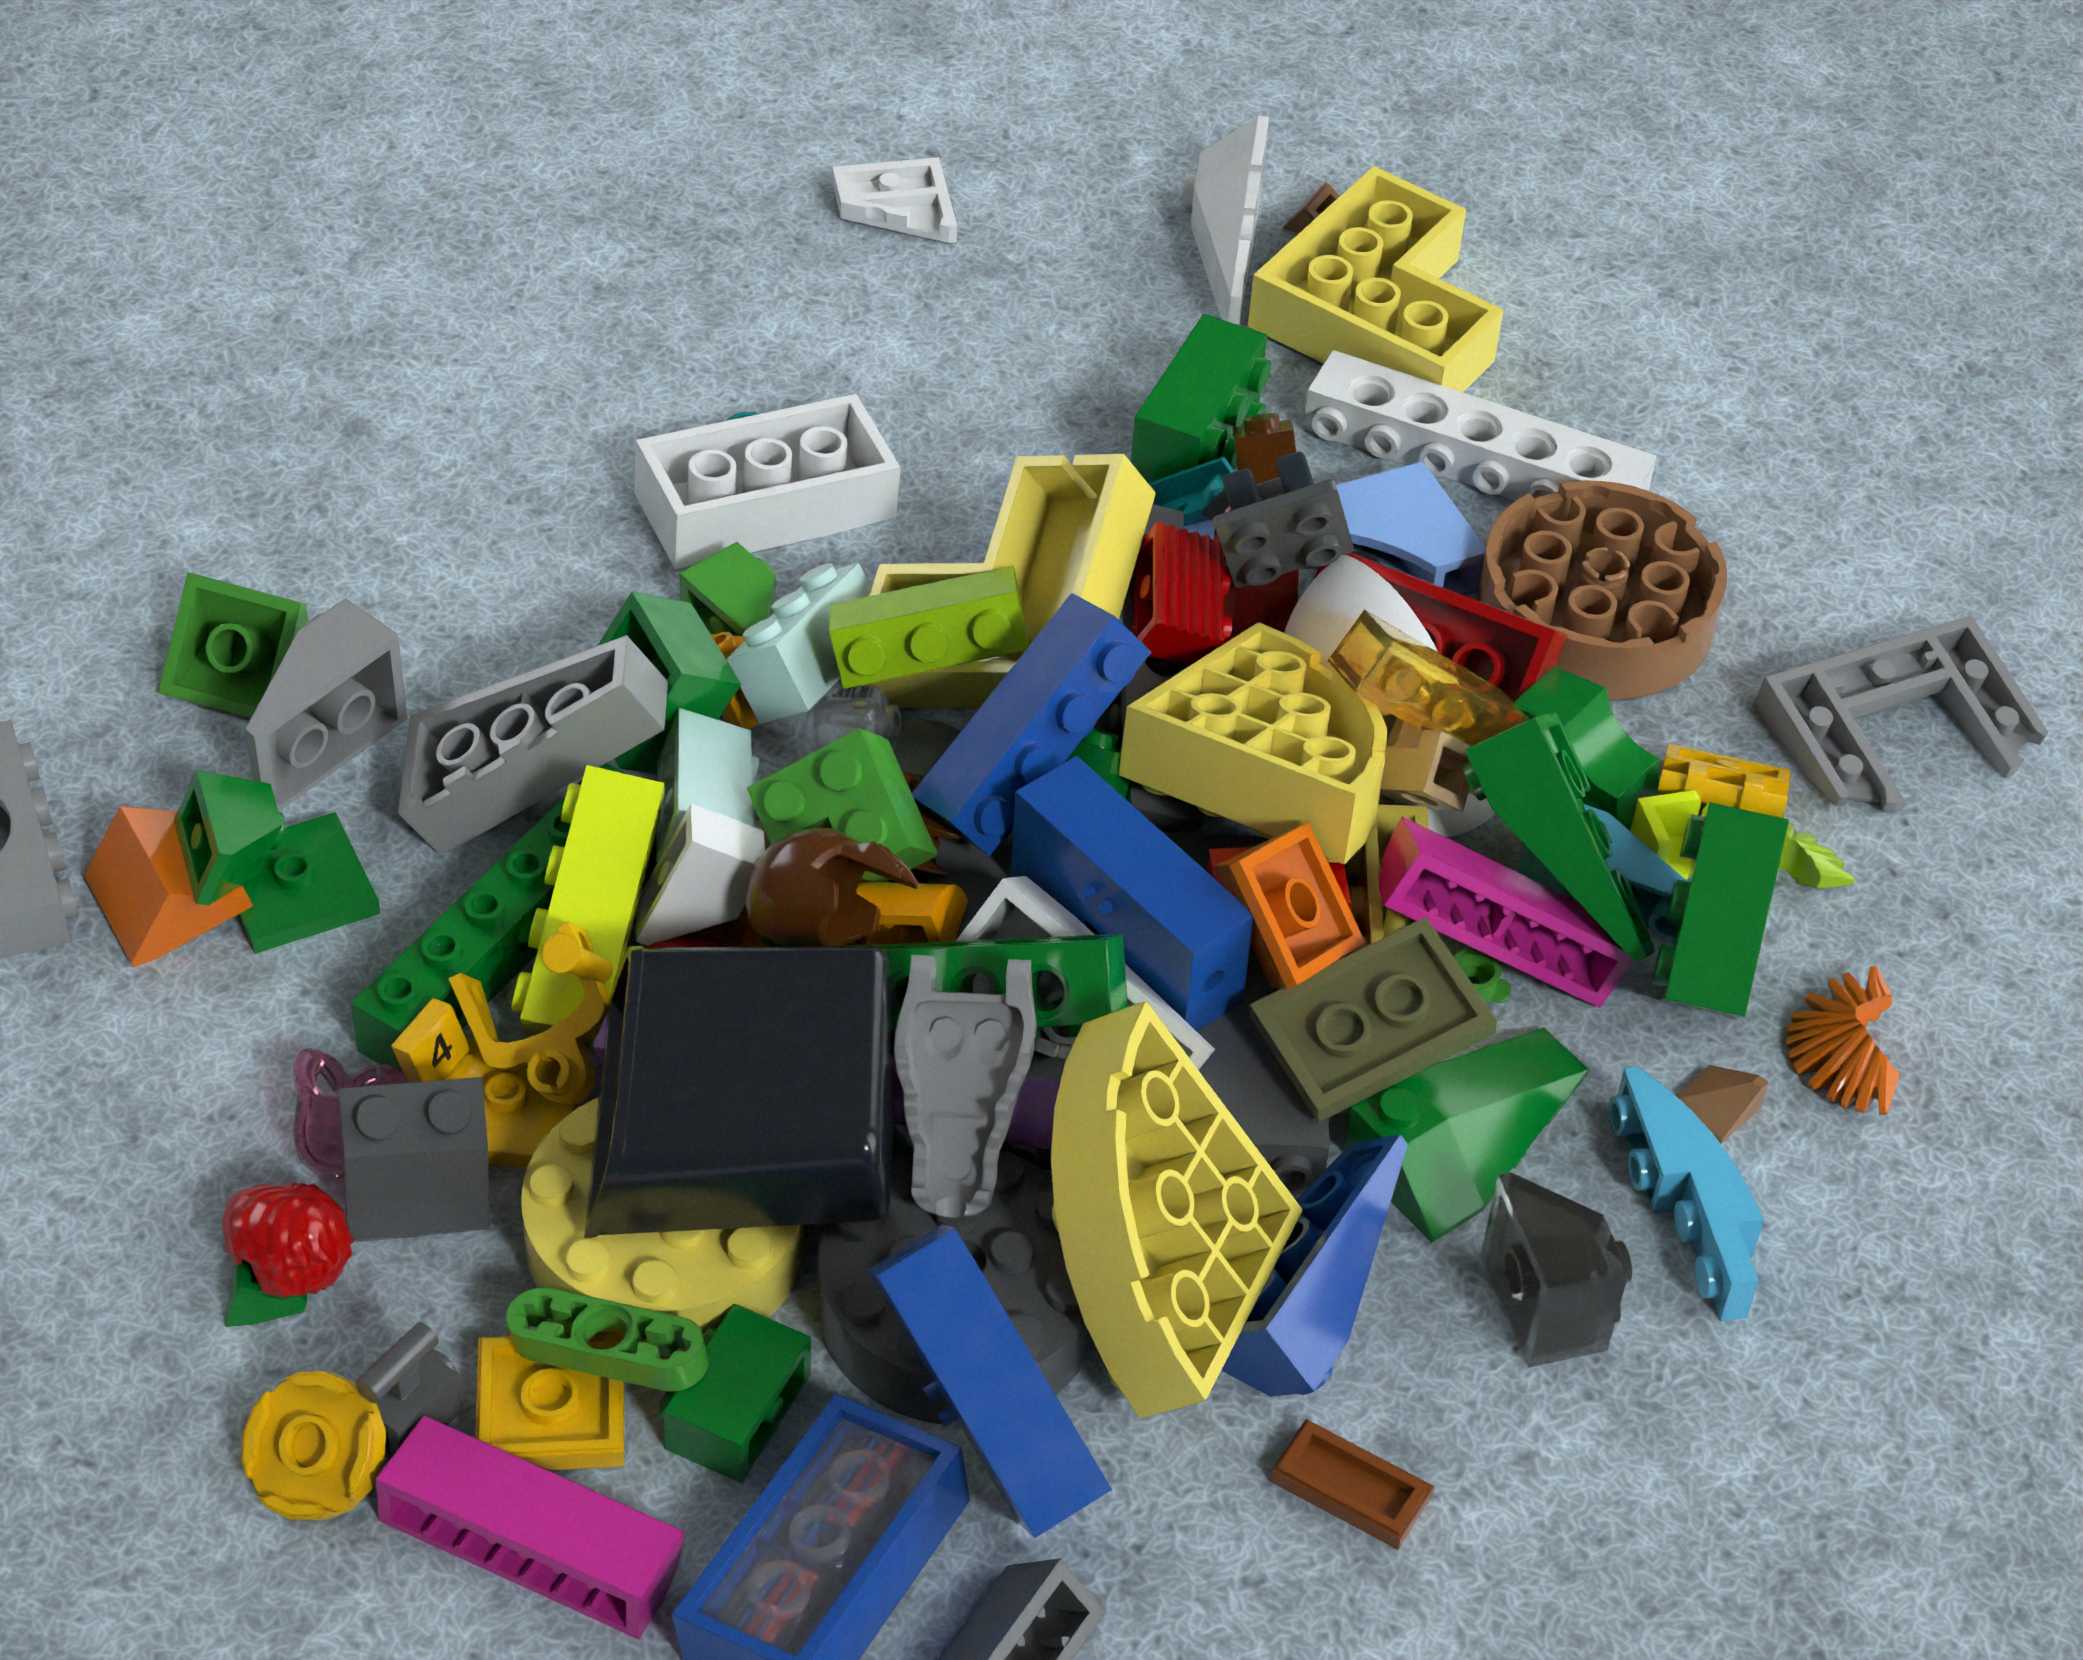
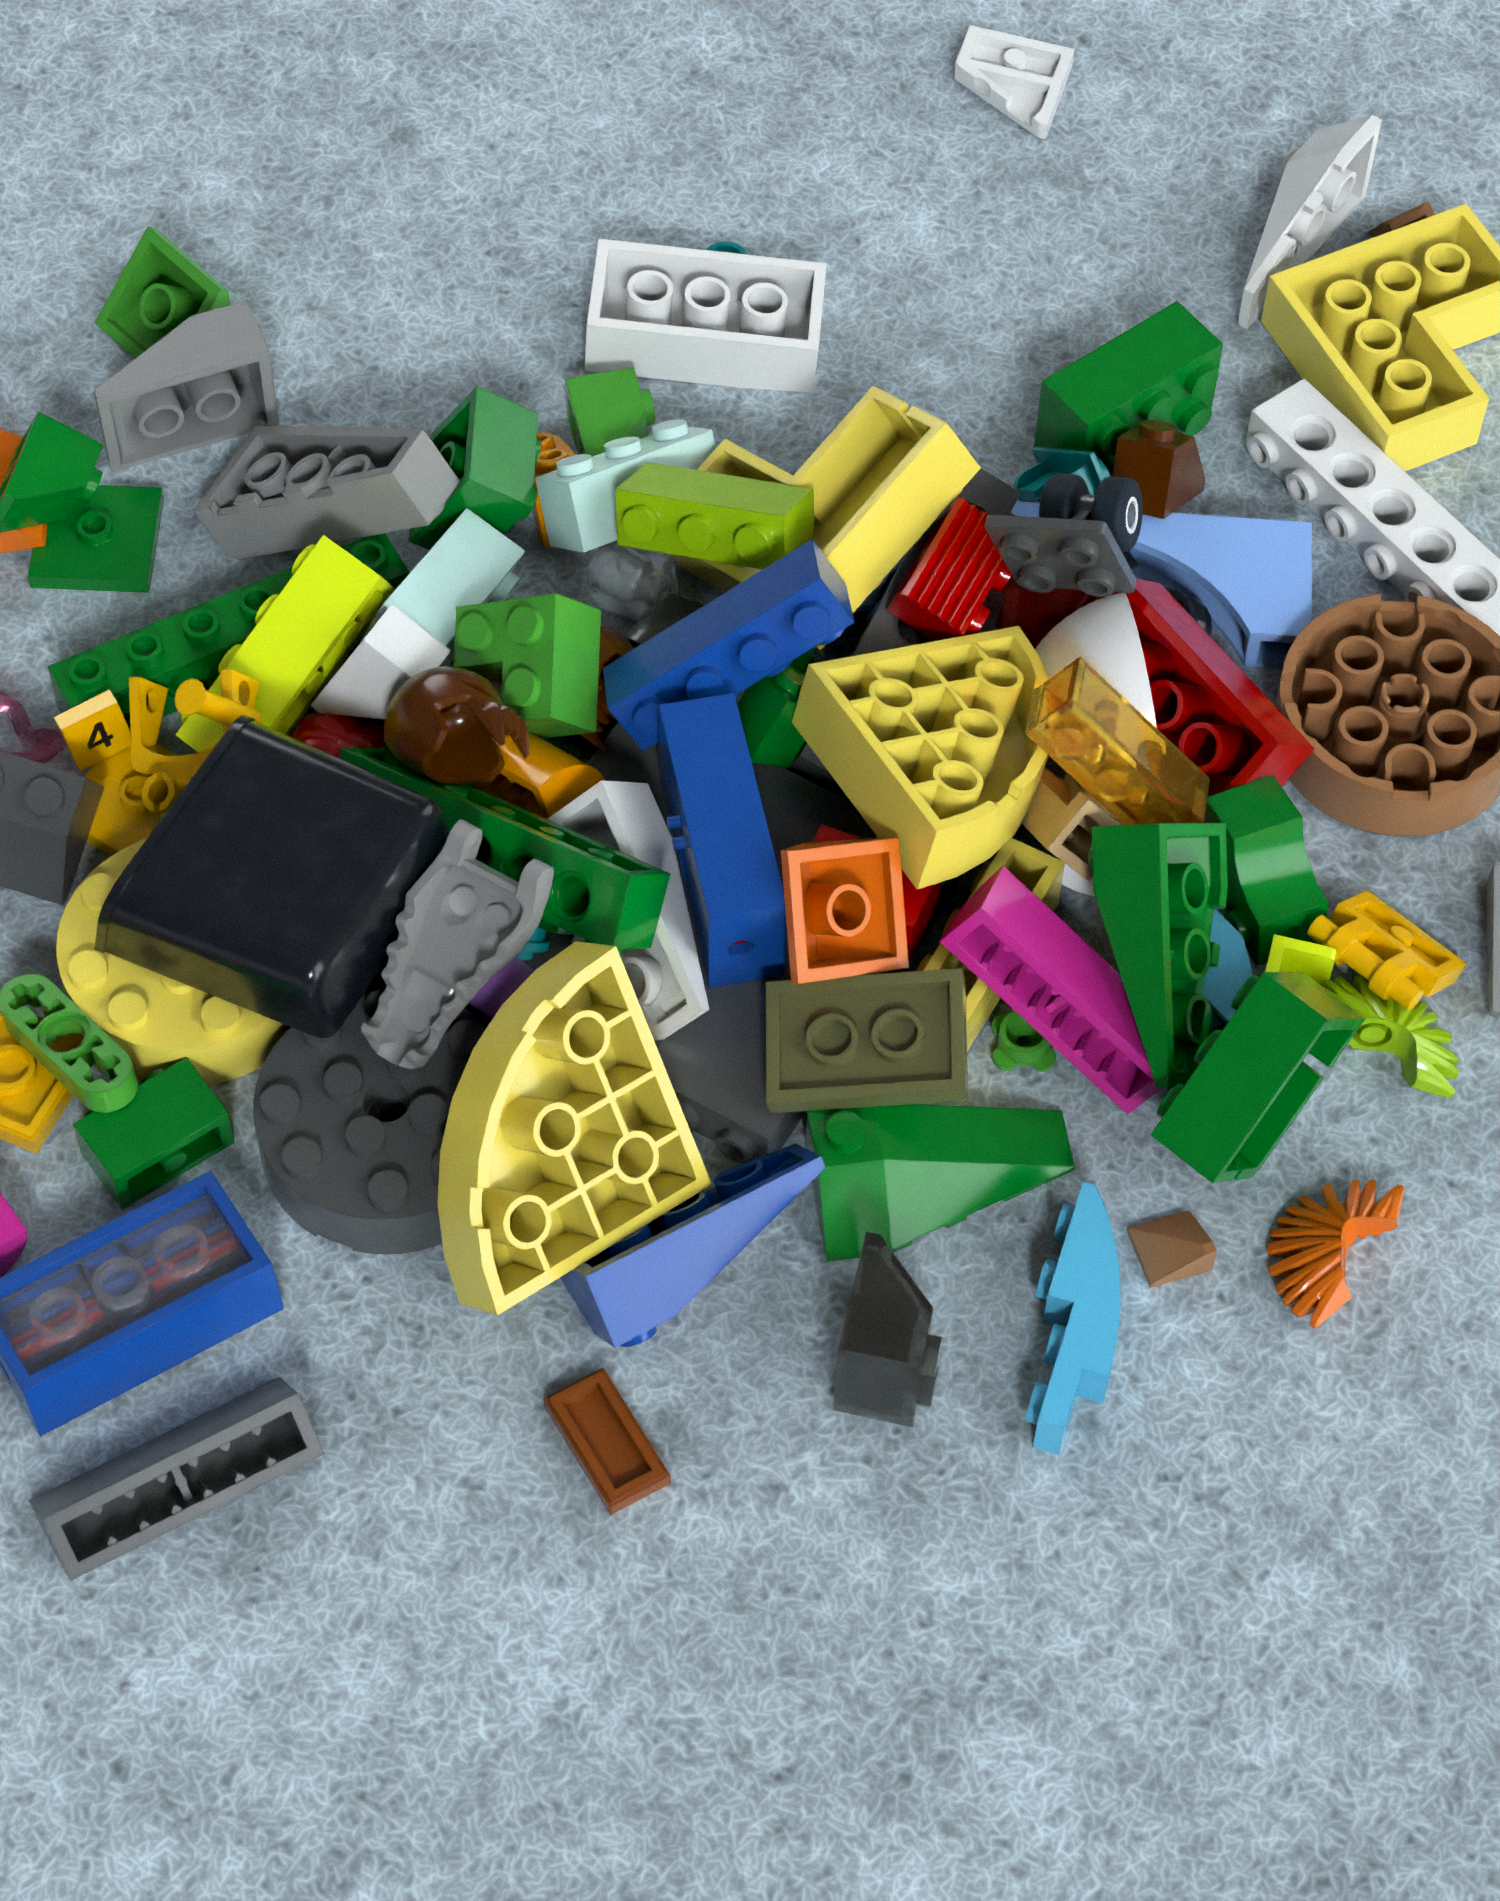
camera: 30 degrees right, 10 degrees up
(989, 1380) = (311, 1217): blue brick -> none

